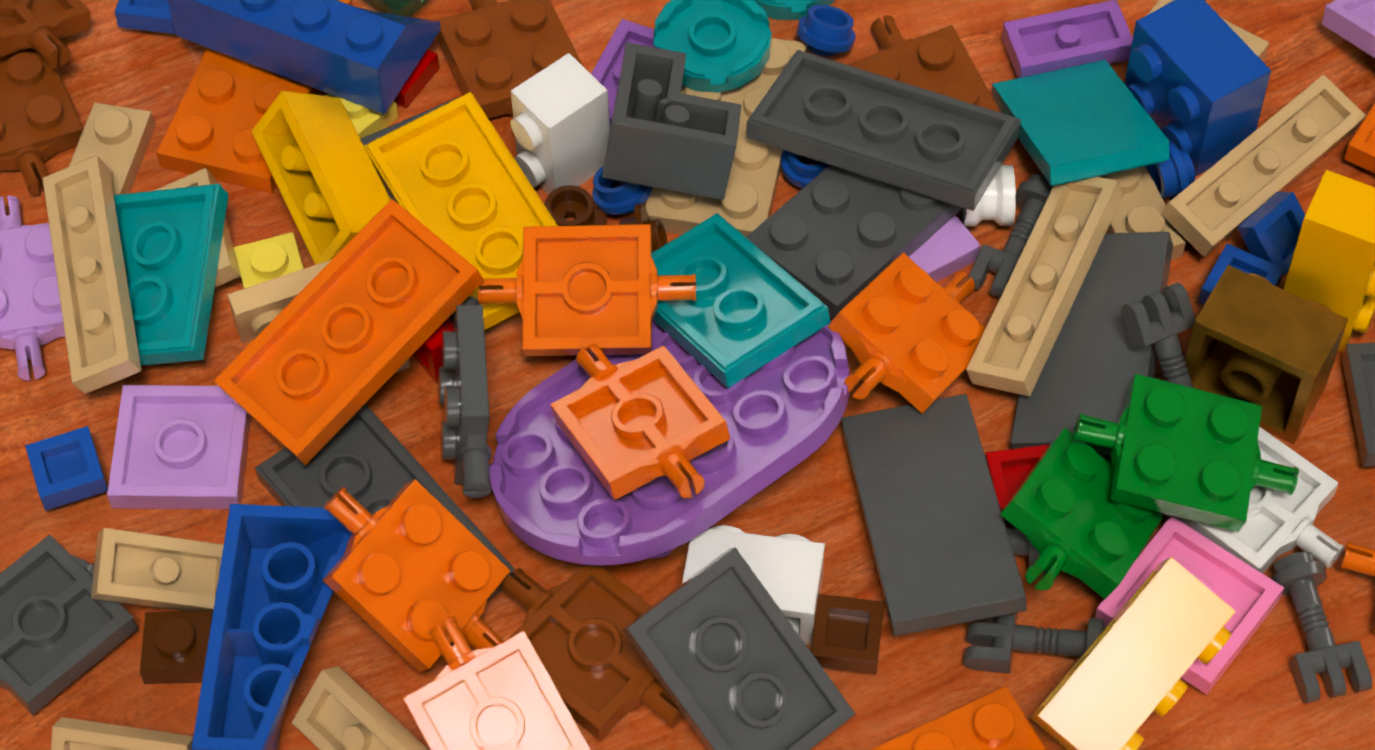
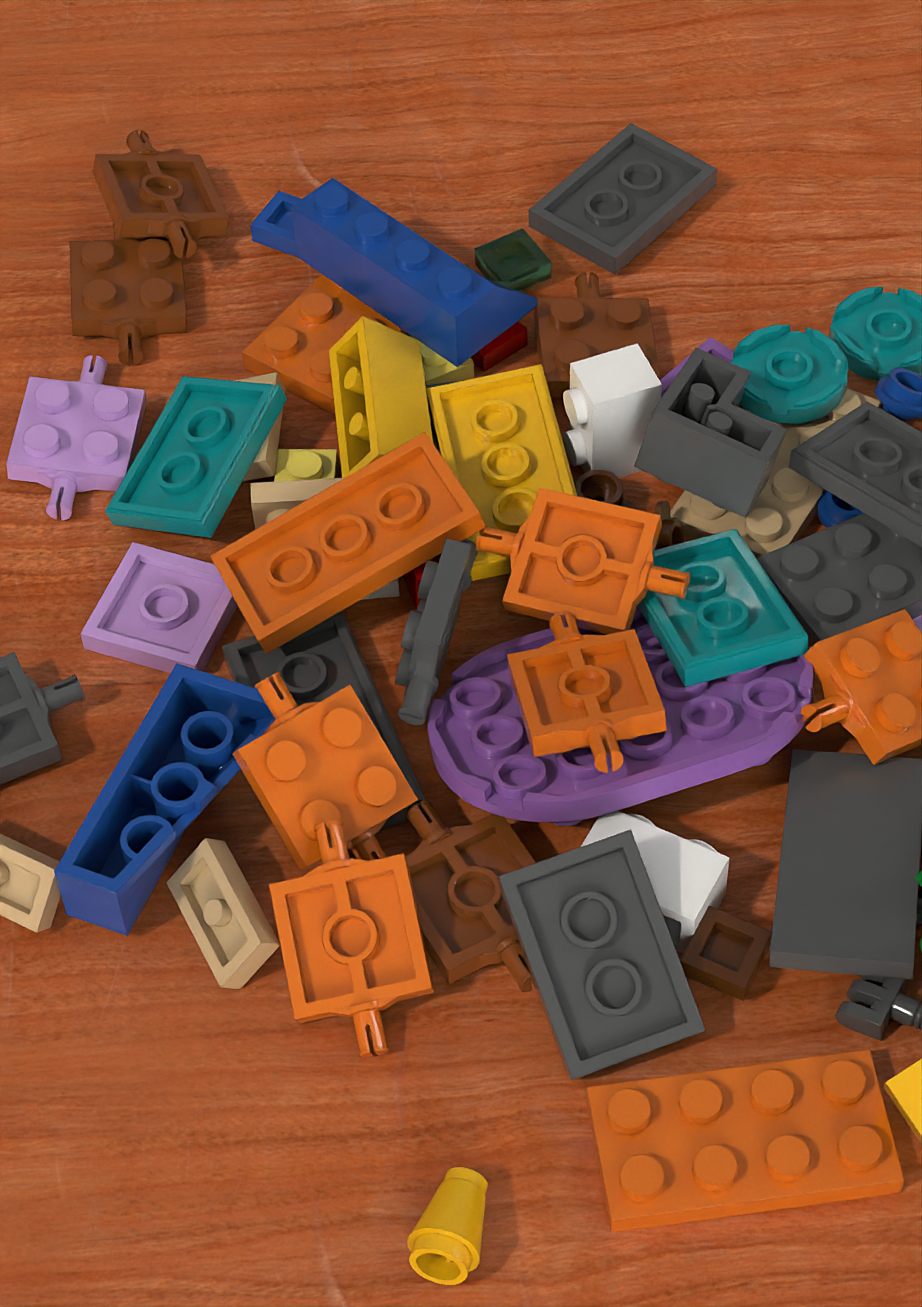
camera: 20 degrees right, 5 degrees down
(66, 468) = (54, 600): blue plate -> none
(91, 275) = (137, 438): tan plate -> none
(118, 139) = (197, 346): tan plate -> none
(156, 570) = (88, 706): tan plate -> none
(175, 646) = (80, 781): reddish brown plate -> none
(616, 195) = (646, 490): blue plate -> none

